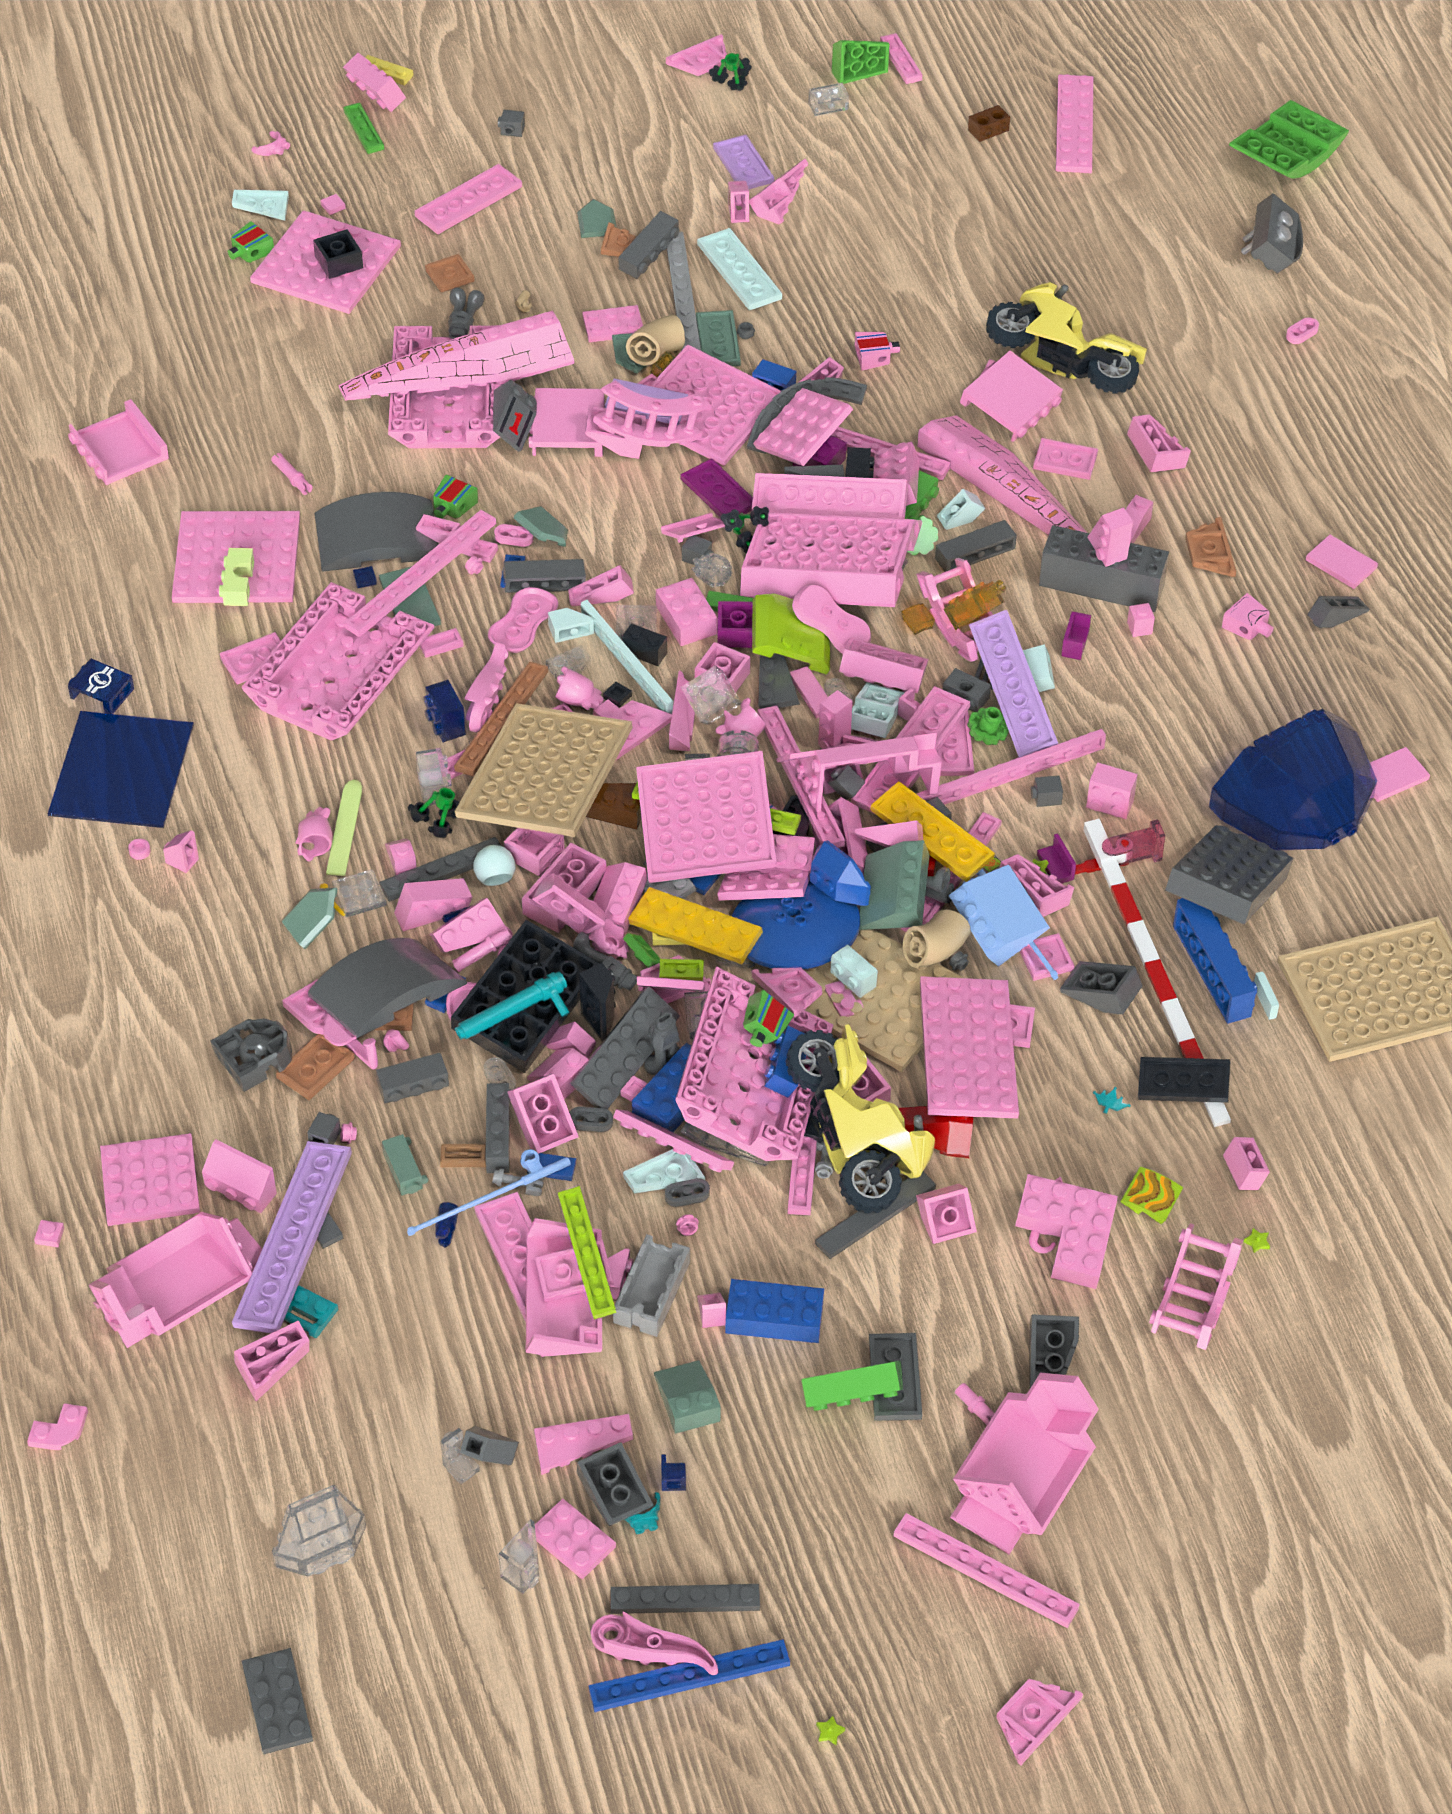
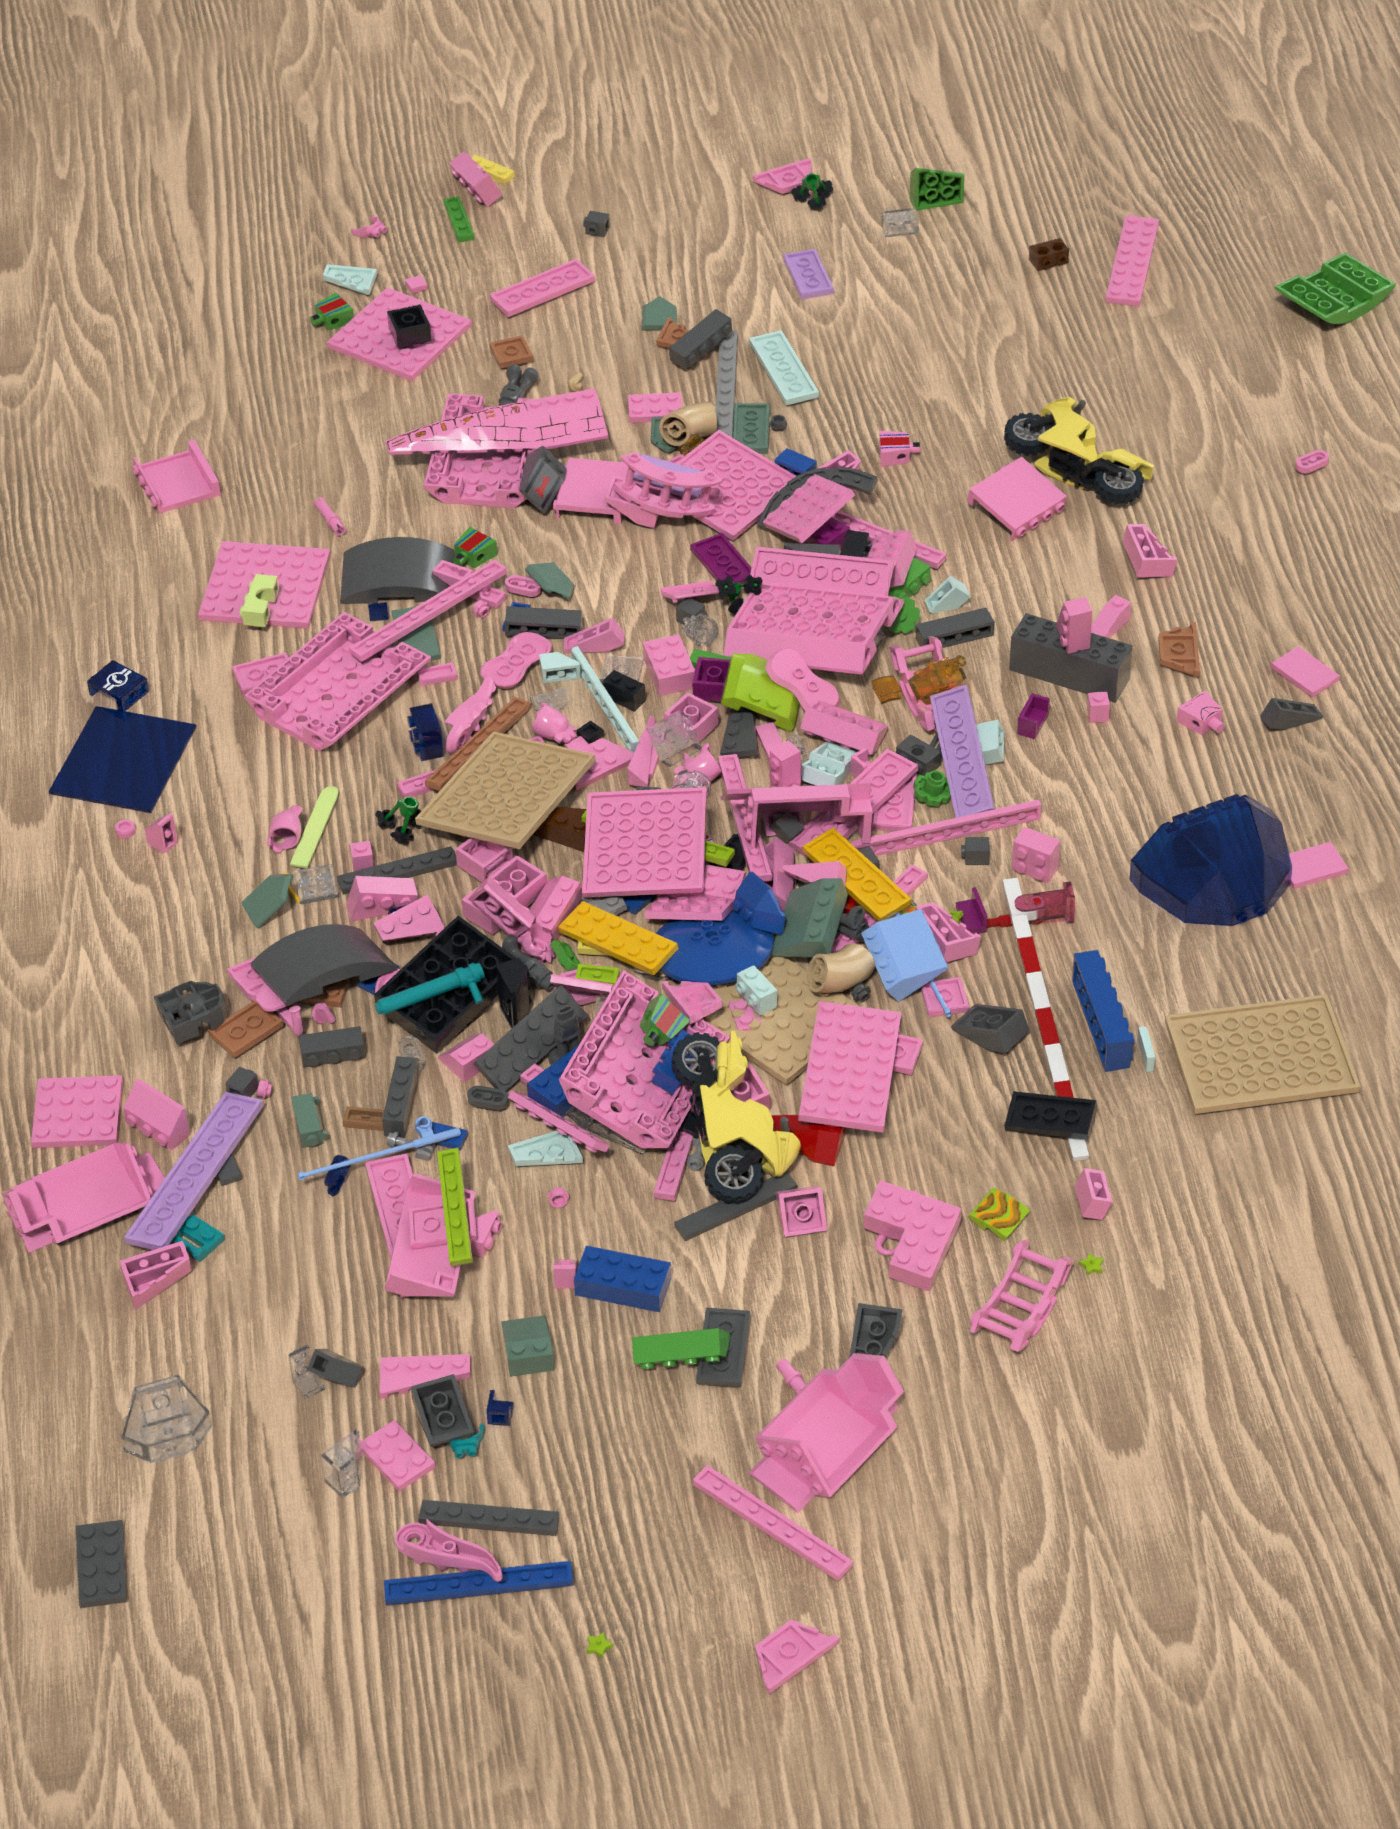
camera: 10 degrees right, 5 degrees down
(432, 772) = (402, 782): clear brick -> none
(484, 948) = (416, 942): bright pink pin -> none
(494, 865) = (443, 870): light aqua helmet -> none
(543, 1113) = (443, 1087): bright pink brick -> none
(574, 1037) = (485, 1024): bright pink slope -> none
(651, 1286) = (512, 1245): light grey piece -> none
(687, 1192) = (563, 1169): dark grey plate -> none
(738, 196) = (794, 303): bright pink torso -> none
(774, 199) = (829, 309): bright pink wedge -> none
(901, 59) = (977, 191): bright pink plate -> none
(994, 471) = (985, 563): bright pink wedge -> none
(1065, 458) = (1058, 559): bright pink tile -> none
(1110, 1100) = (977, 1128): teal piece -> none
(1229, 874) = (1129, 936): dark grey brick -> none
(1275, 235) = (1302, 372): dark grey piece -> none

